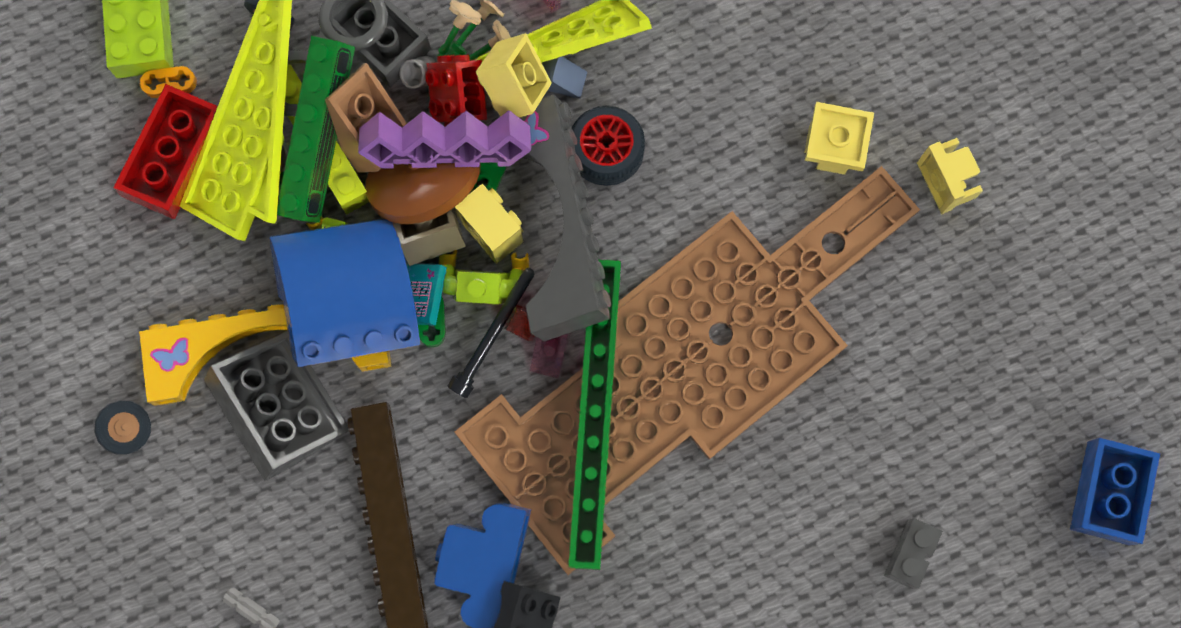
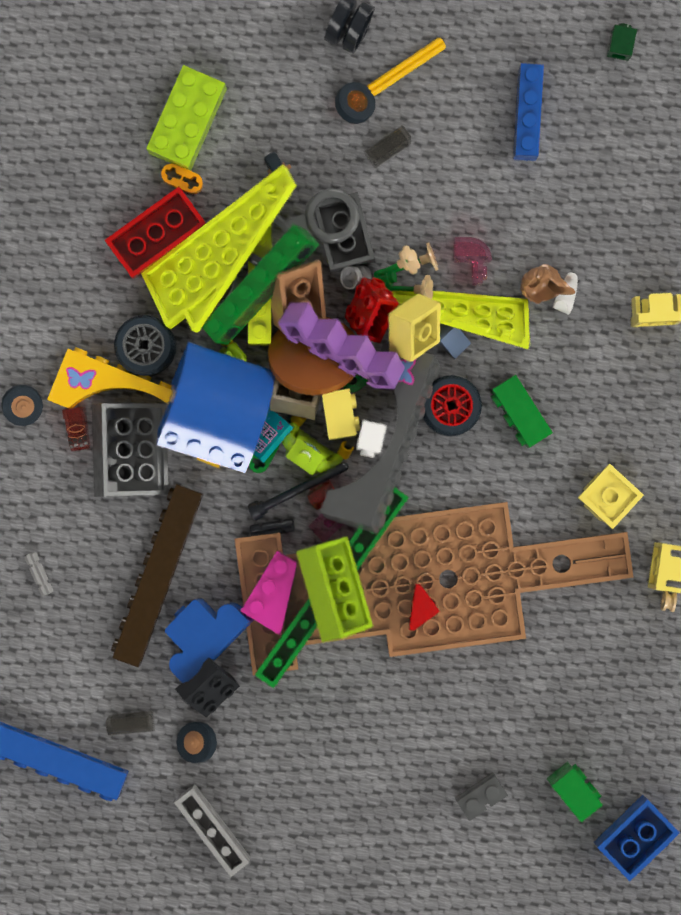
camera: 25 degrees right, 10 degrees up
(201, 415) = (77, 428): none -> clear red leg
(219, 262) = (129, 345): none -> wheel
(505, 383) = (273, 527): none -> black axle
(533, 468) = (271, 594): none -> dark pink wedge
(539, 225) = (370, 439): none -> white brick
(599, 410) = (334, 589): none -> lime slope
(686, 108) = (520, 412): none -> green brick
(711, 378) = (422, 608): none -> red slope
(974, 212) = (669, 601): none -> tan bush
(1014, 480) = (578, 796): none -> green brick

